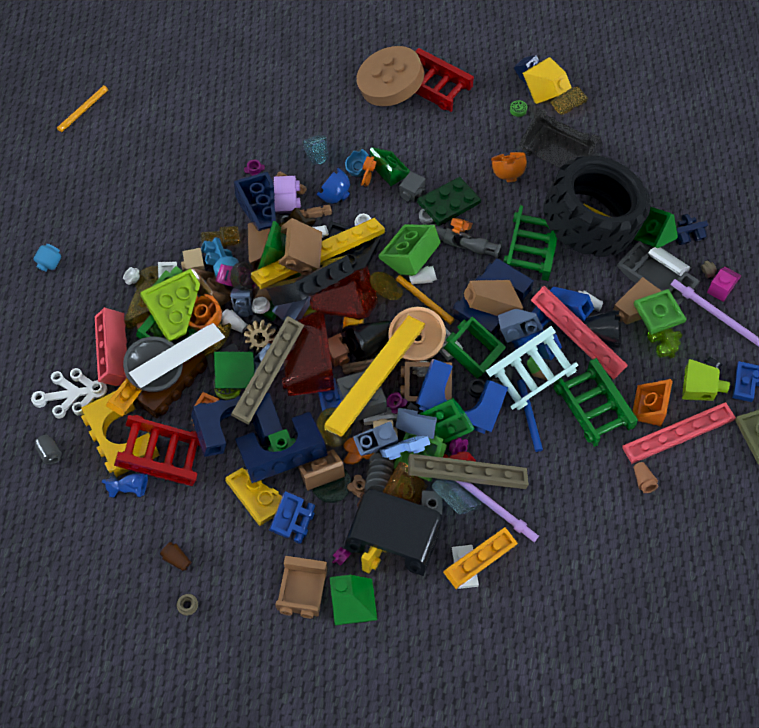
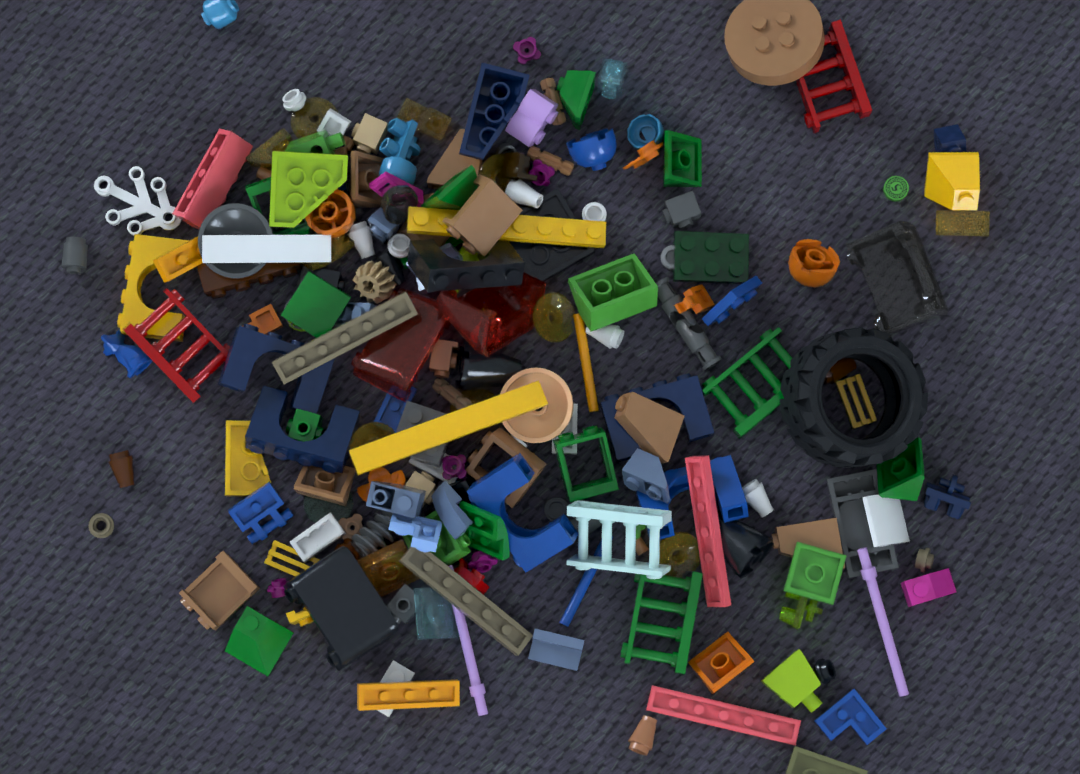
camera: 40 degrees right, 20 degrees up
(303, 167) = (576, 94): none -> green slope
(318, 216) = (547, 171): none -> magenta plate
(332, 535) = (272, 552): none -> yellow tile
(342, 506) = (317, 537): none -> white plate
(484, 204) = (733, 300): none -> blue plate
(547, 465) = (556, 649): none -> sand blue panel
(573, 354) = (687, 557): none -> clear yellow dish

